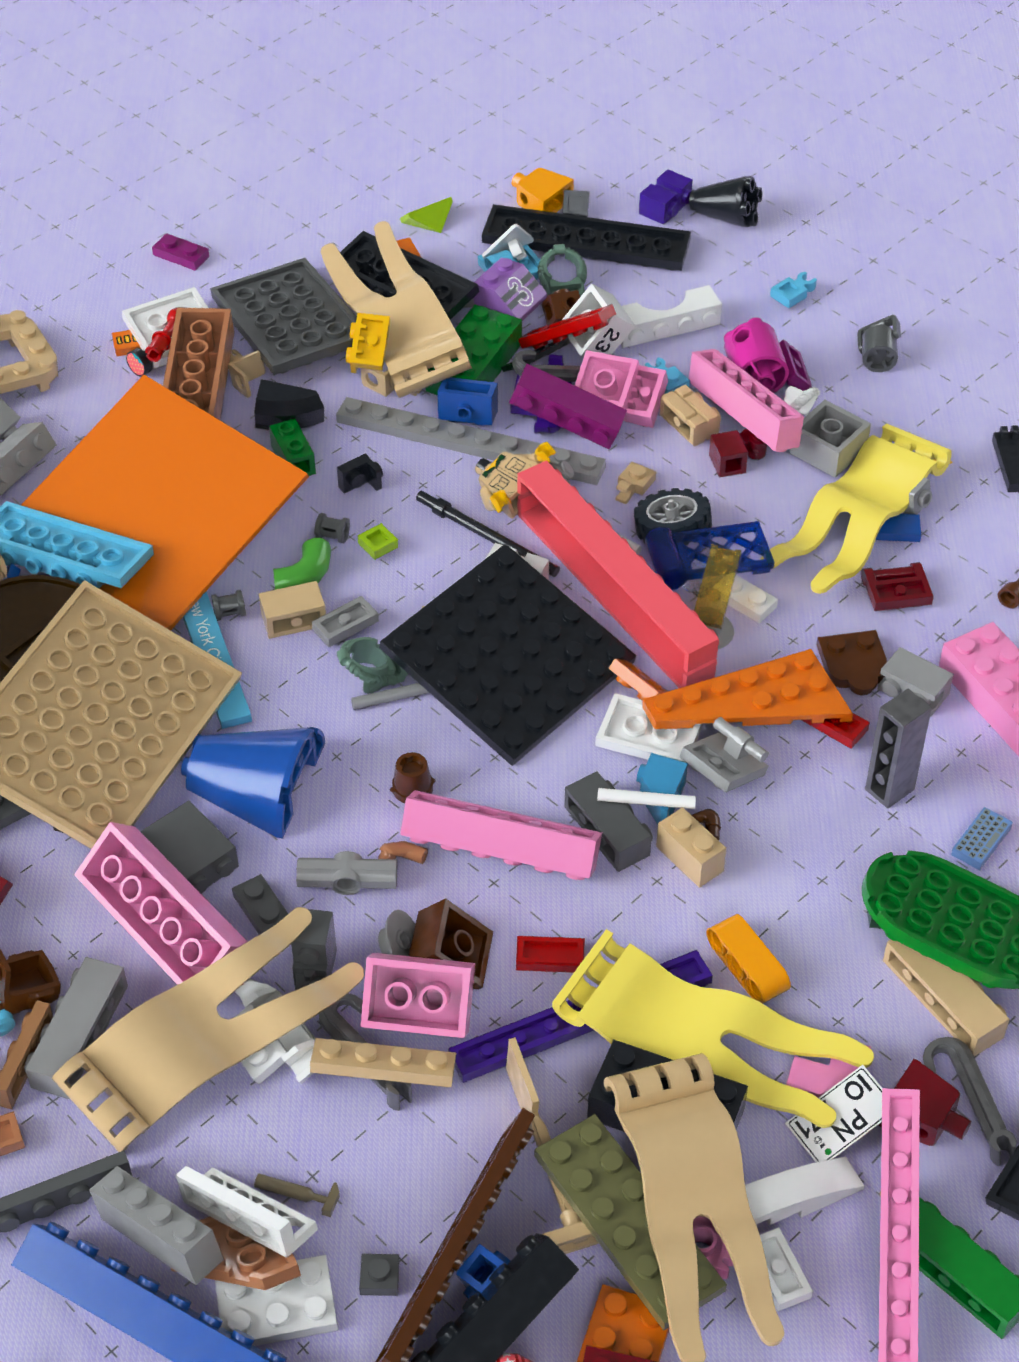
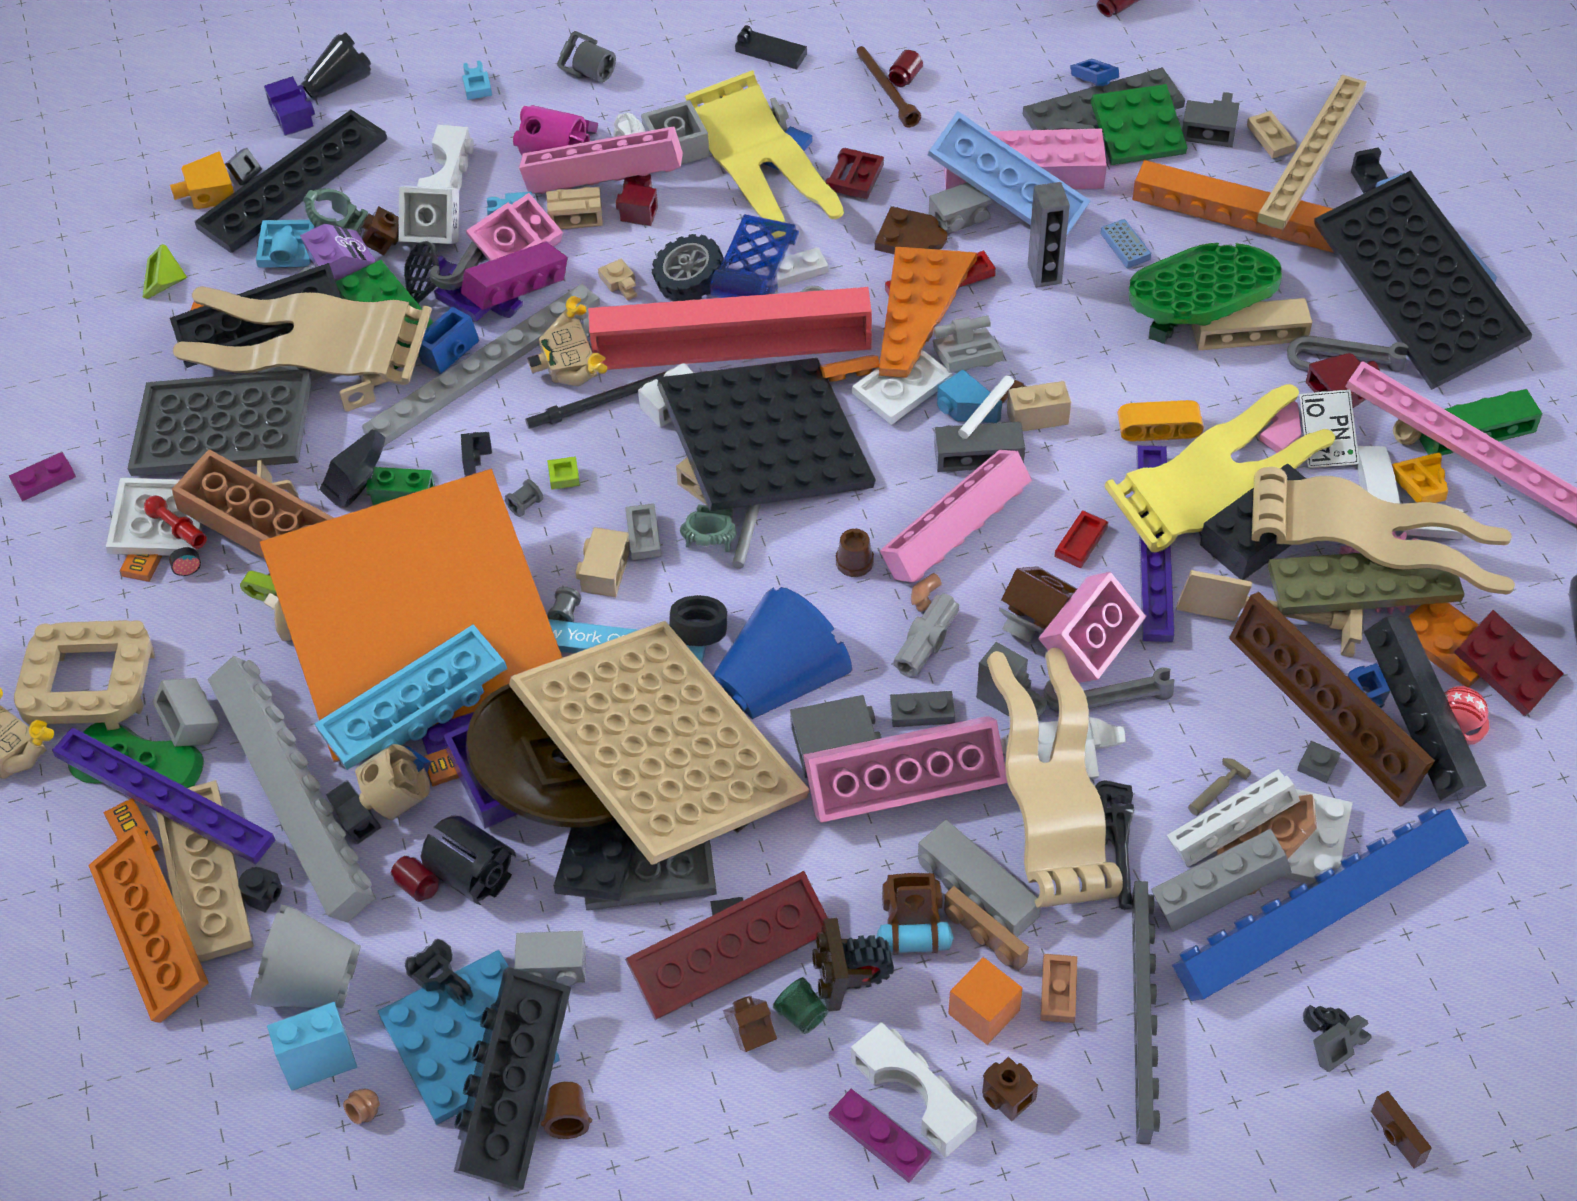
camera: 60 degrees left, 5 degrees up
(199, 1116) = (1117, 830): none -> black piece
(266, 683) = (699, 608): none -> black tyre
(310, 568) = (565, 534): bright green cylinder -> none
(369, 342) = (329, 372): yellow bracket -> none
(383, 1062) = (1141, 677): tan plate -> none
(511, 240) = (276, 223): white piece -> none
(576, 325) = (423, 230): red plate -> none
(717, 585) = (796, 265): clear yellow hinge -> none
(834, 1236) = (1422, 478): none -> light orange wing
(966, 695) = (997, 168): none -> light blue plate

